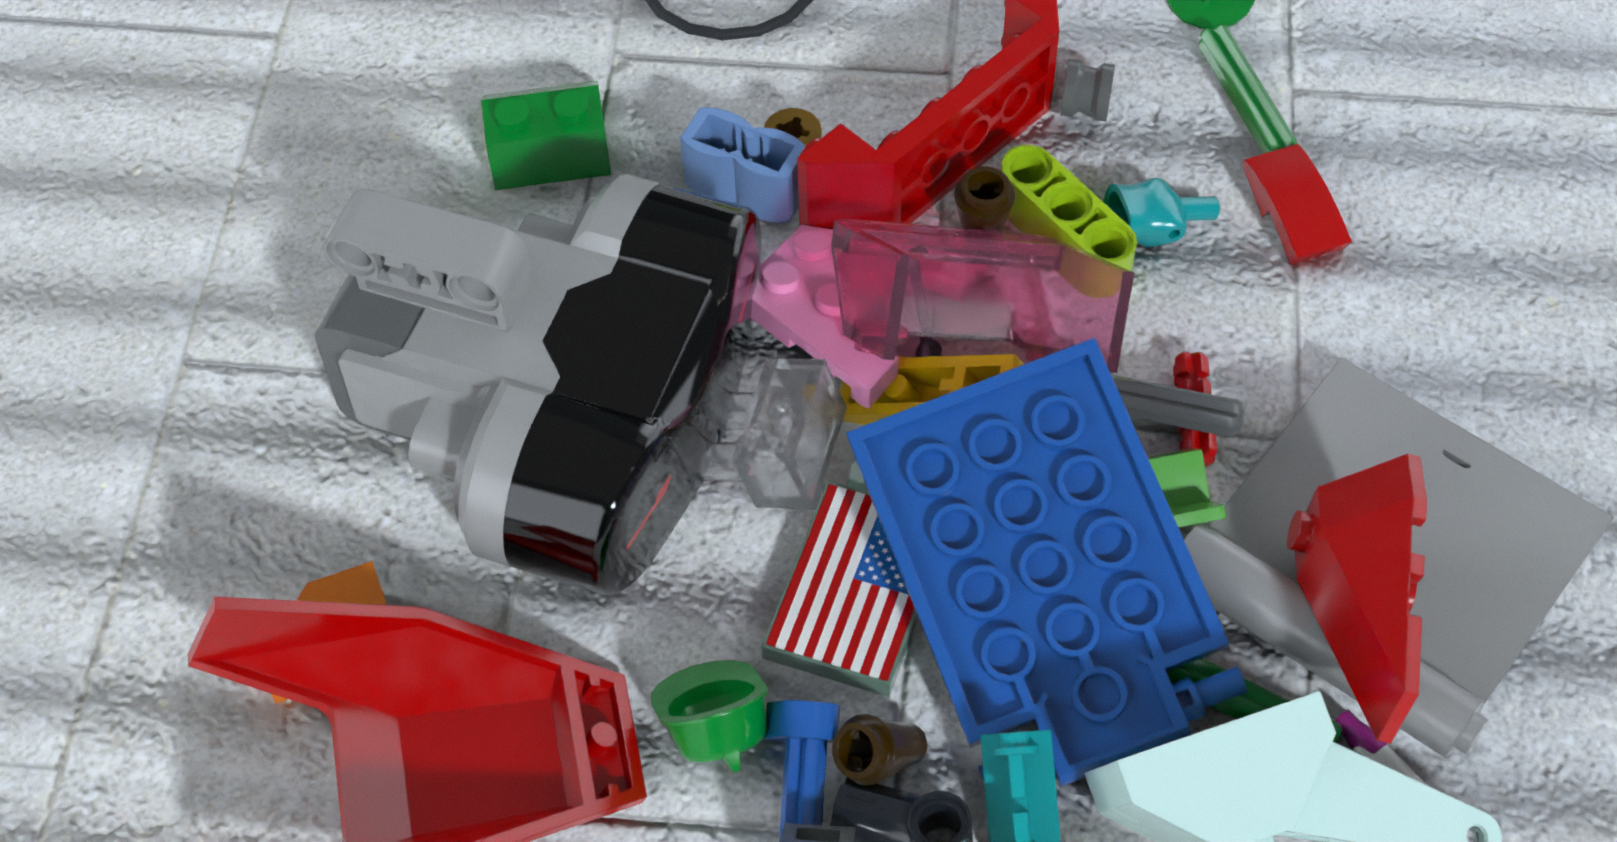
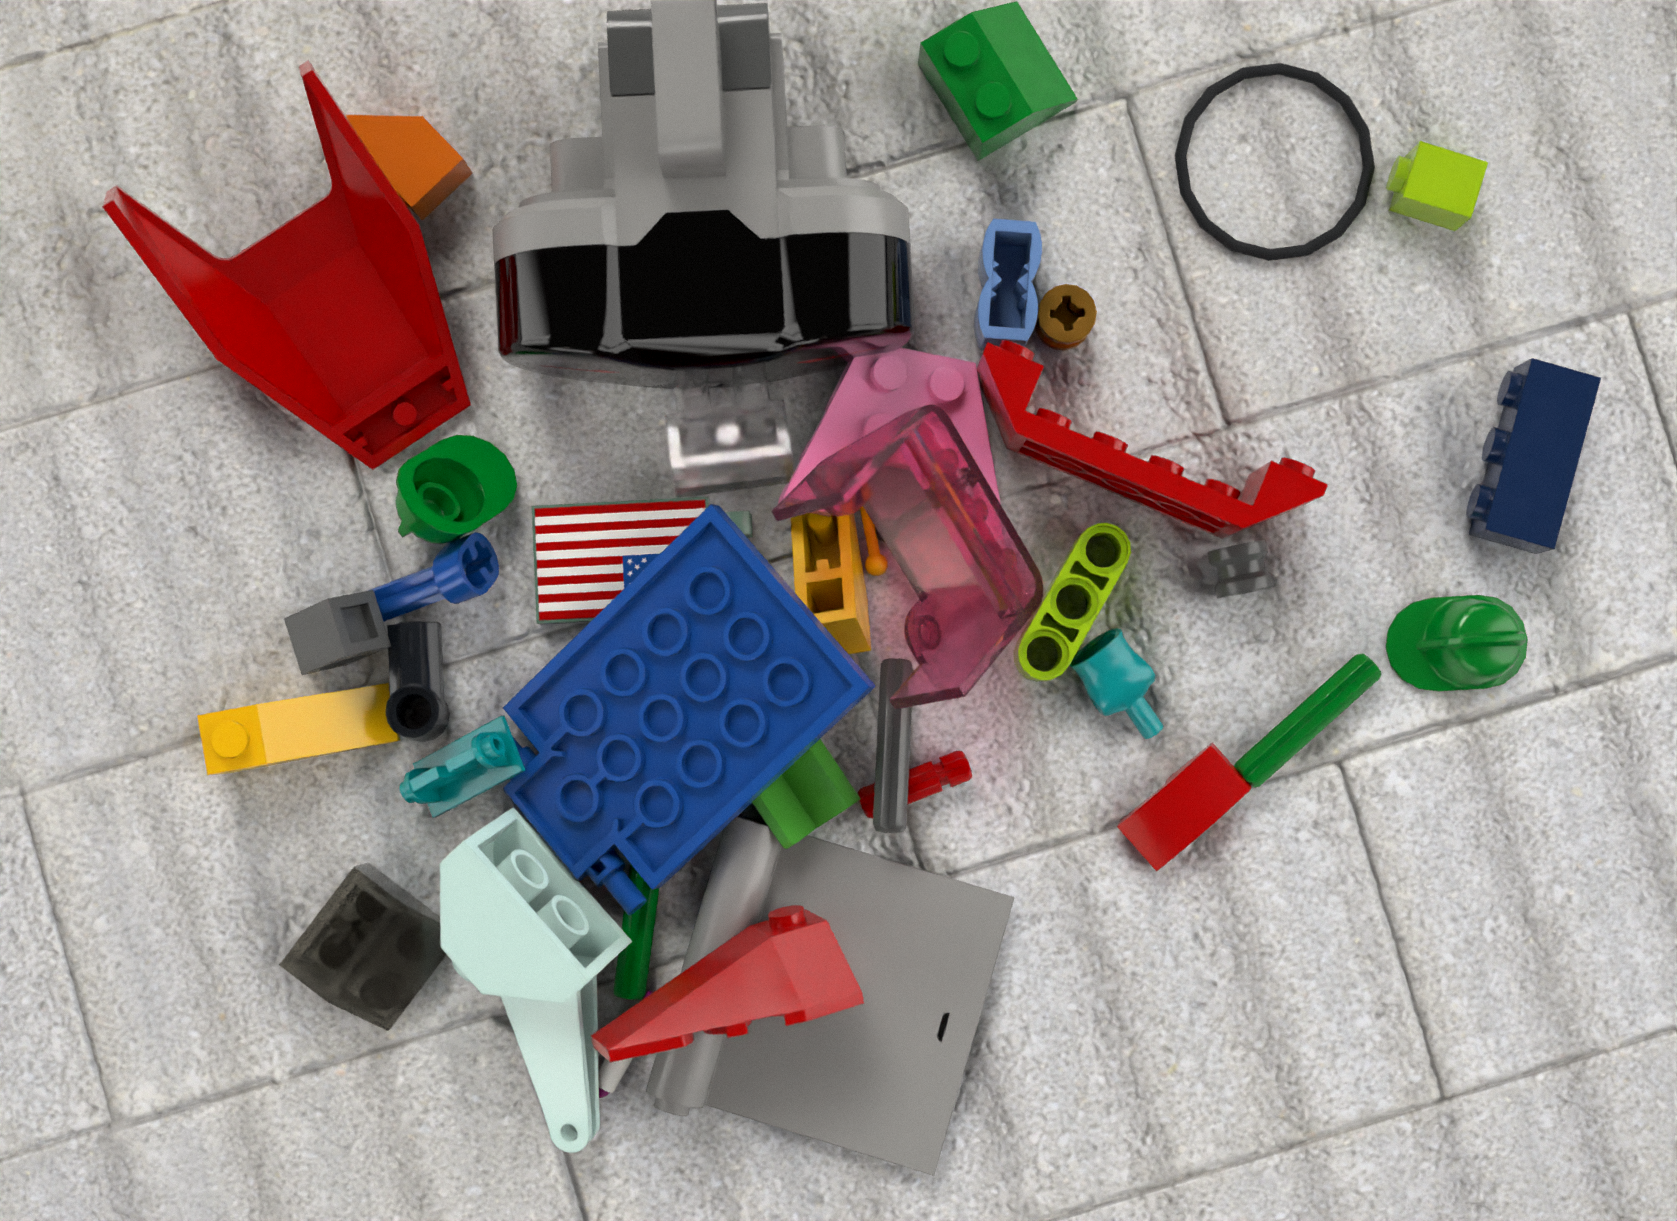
camera: 65 degrees right, 30 degrees up
(876, 748) = (464, 638): dark brown cone -> none
(984, 199) = (1057, 512): dark brown cone -> none

